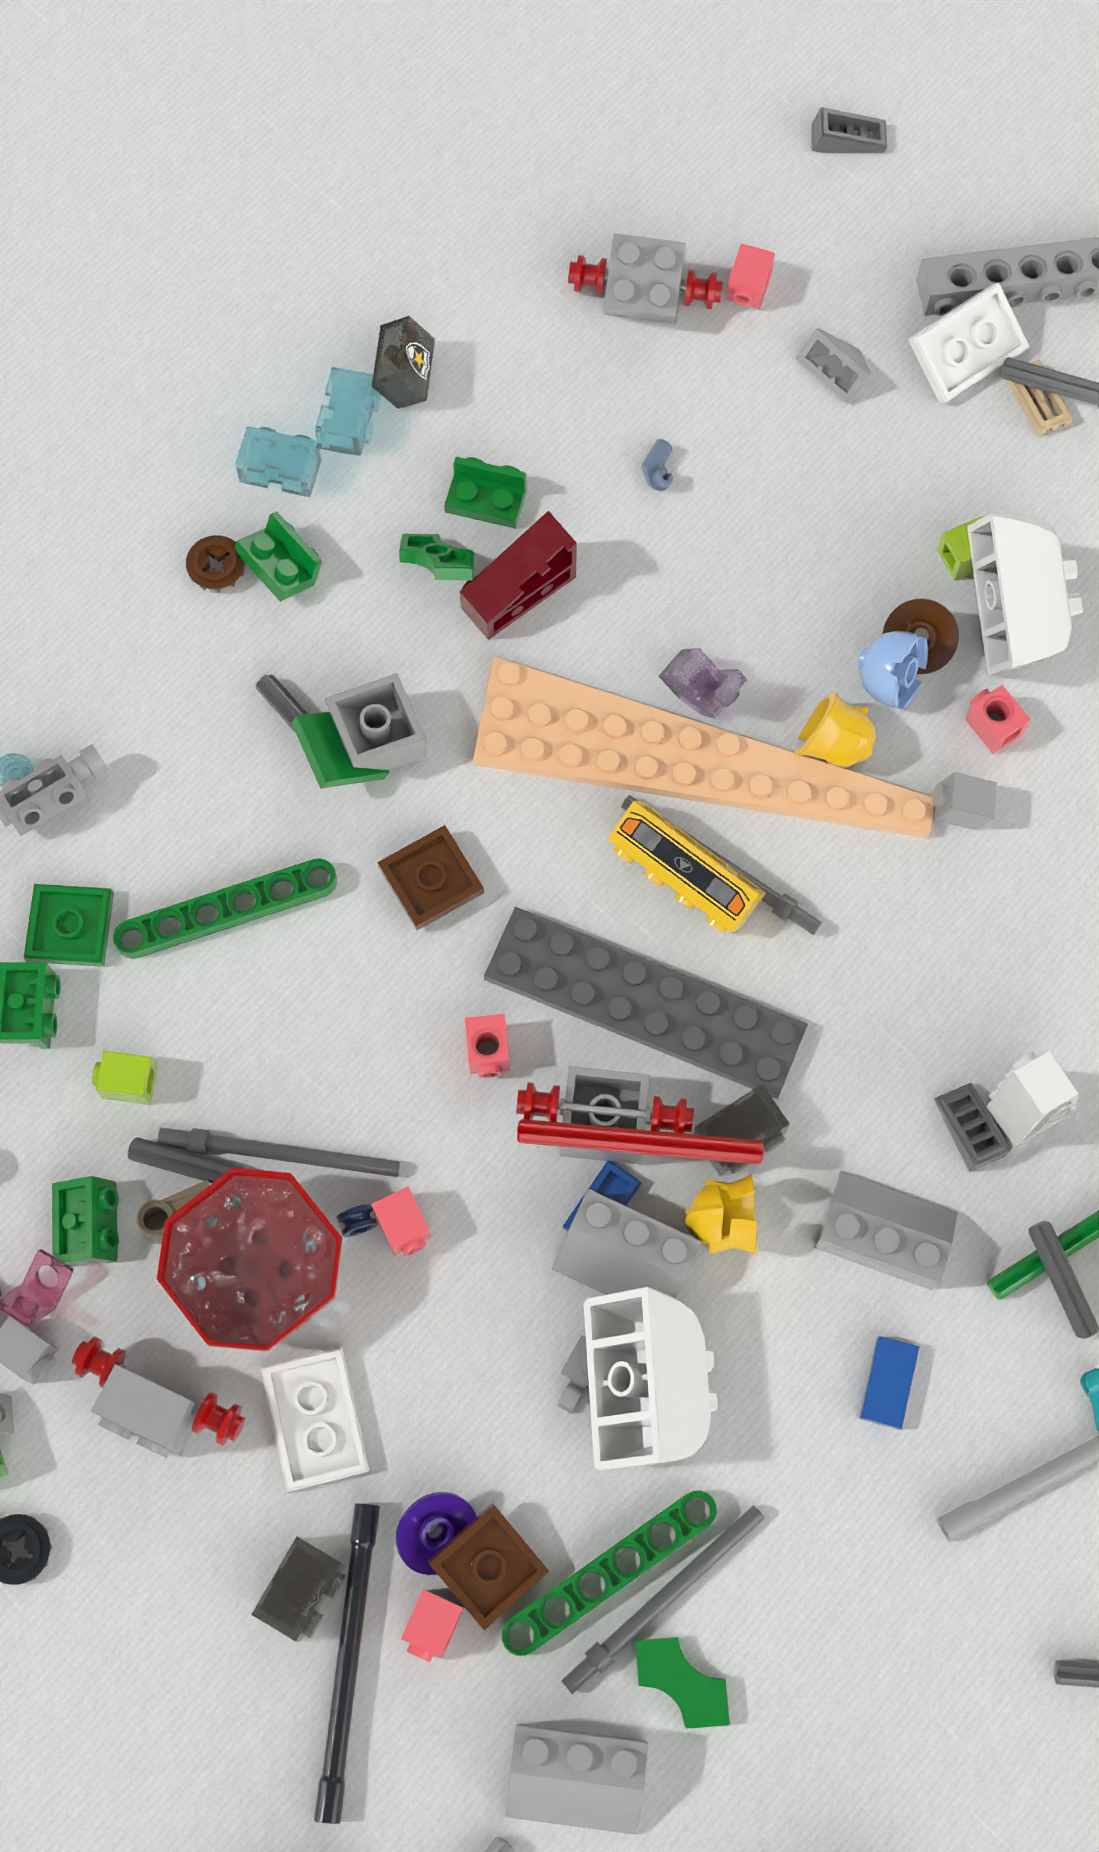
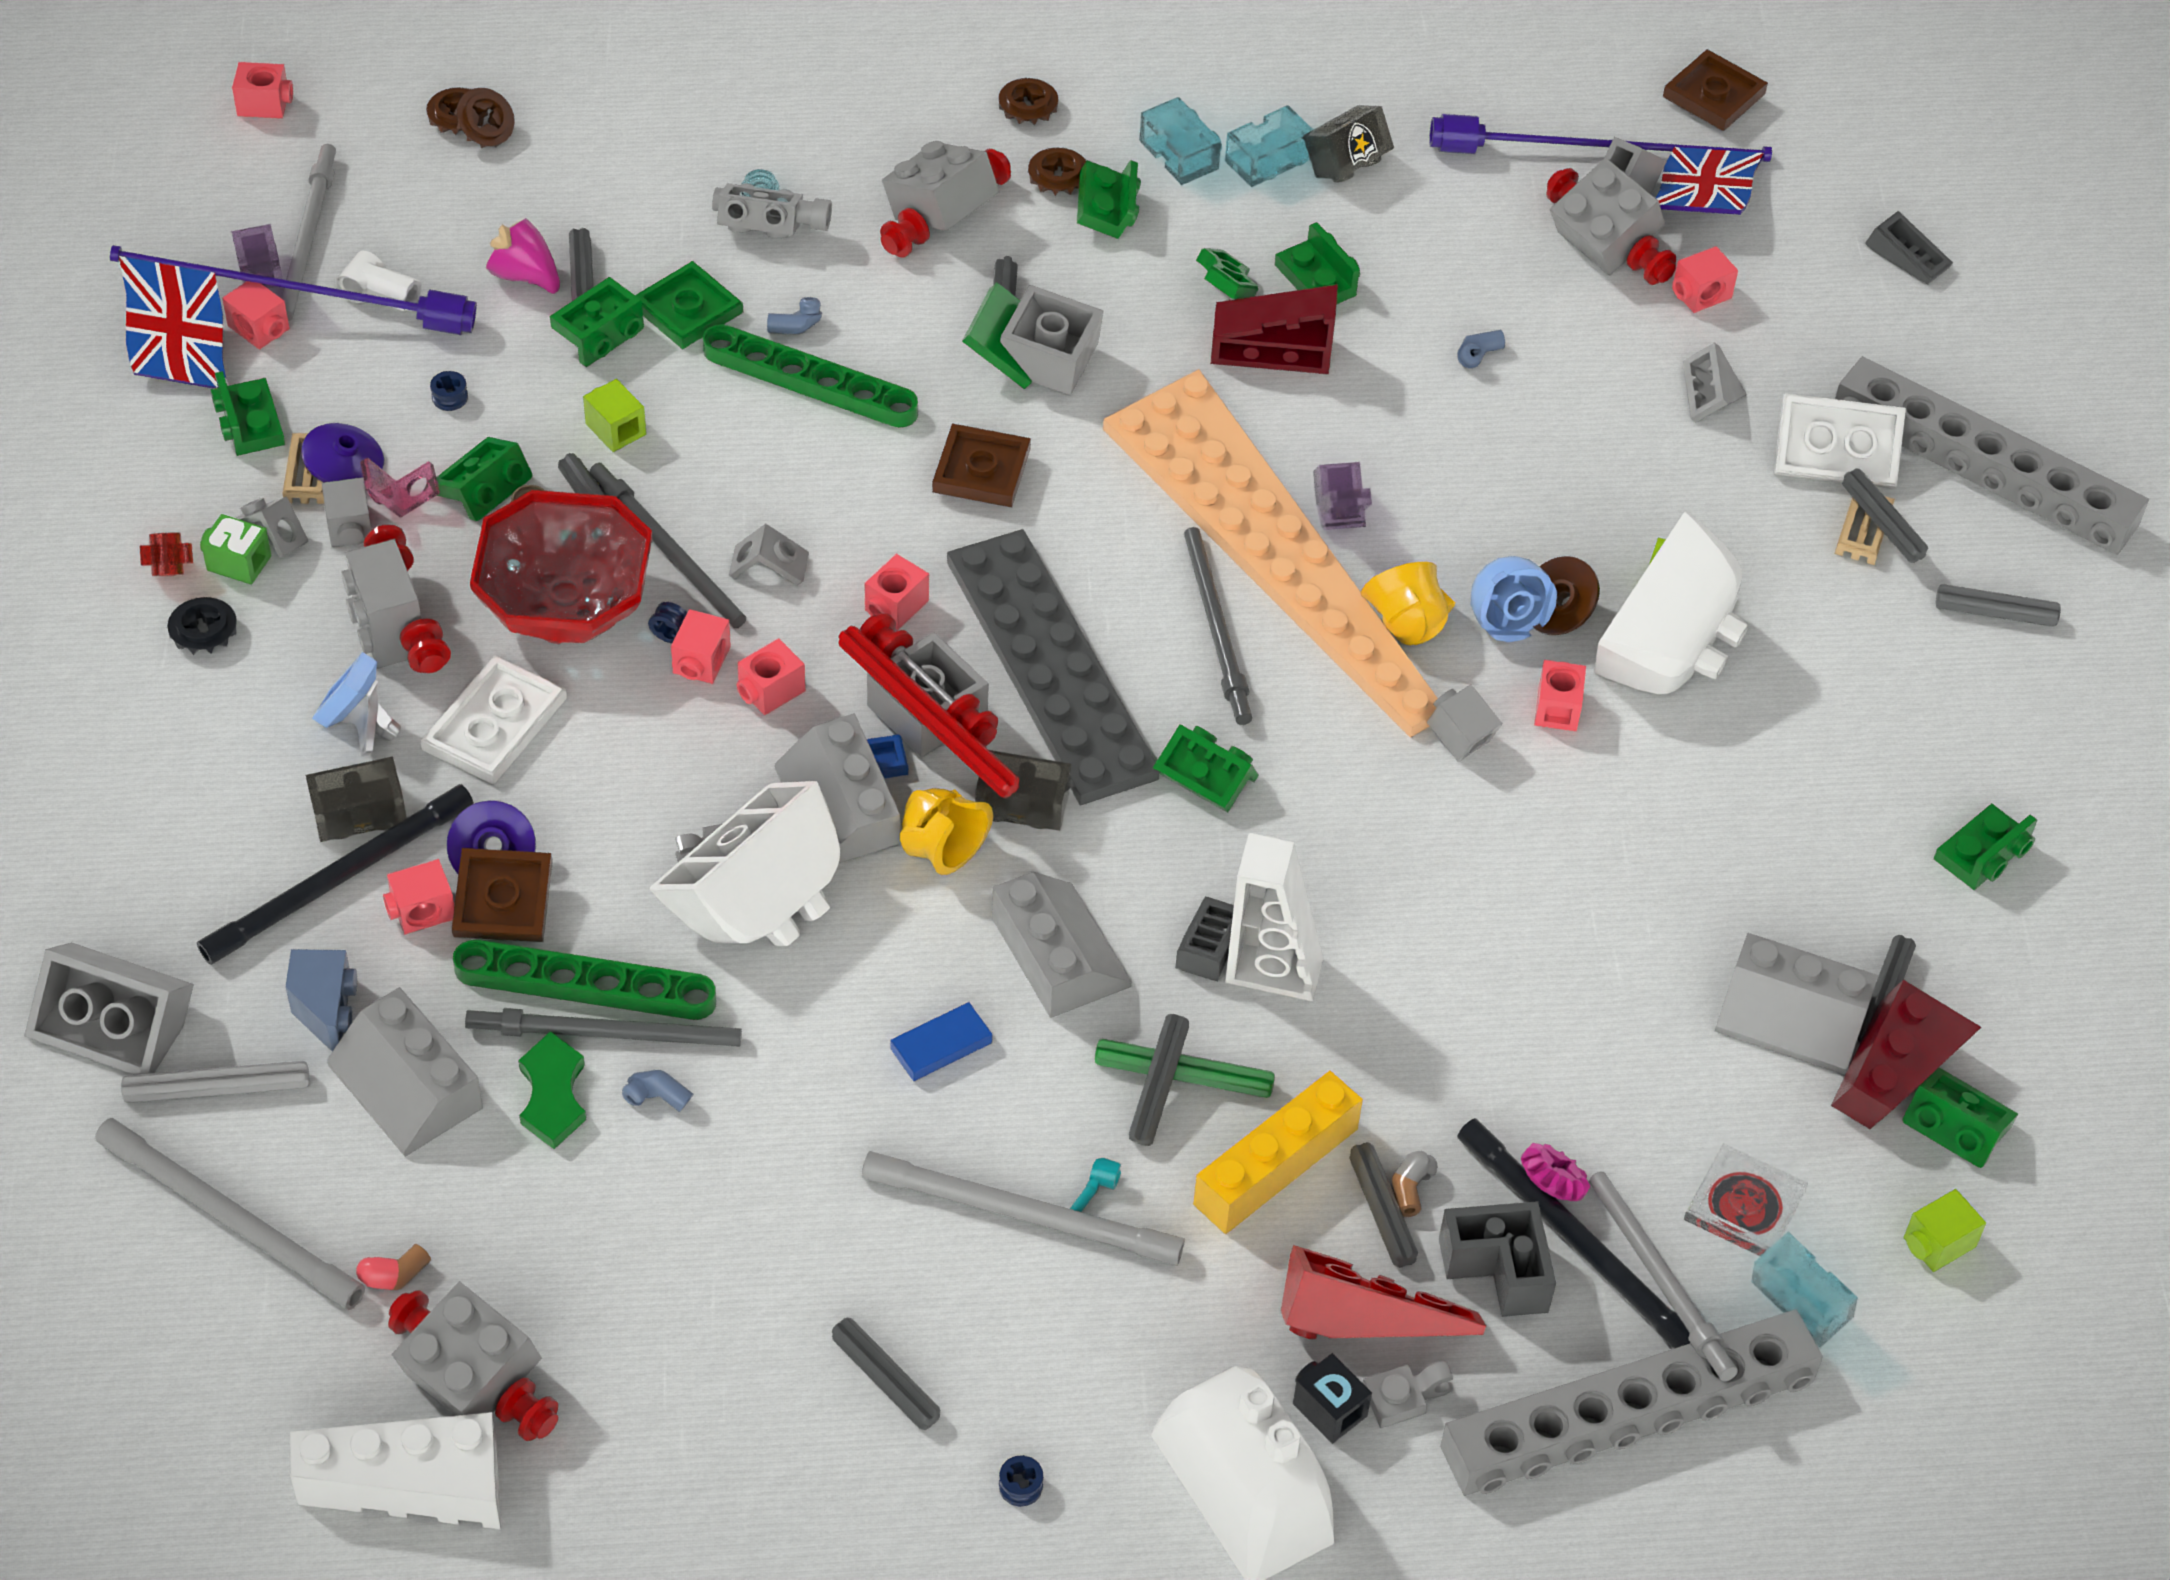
camera: 40 degrees right, 20 degrees down
(127, 503) = (1038, 92): none -> reddish brown gear
(159, 663) = (938, 191): none -> light grey brick
(167, 866) = (799, 321): none -> sand blue arm
(209, 1508) = (355, 701): none -> piece
(367, 1093) = (773, 551): none -> light grey bracket
(449, 1776) = (319, 992): none -> sand blue slope
(472, 1183) = (771, 677): none -> coral brick
(595, 97) = (1715, 89): none -> reddish brown plate
(616, 216) = (1636, 163): none -> light grey brick
(661, 181) = (1691, 180): none -> flag
(686, 867) = (1183, 597): brick -> none
(750, 1608) = (656, 1084): none -> sand blue arm
(837, 993) = (1204, 767): none -> green bracket

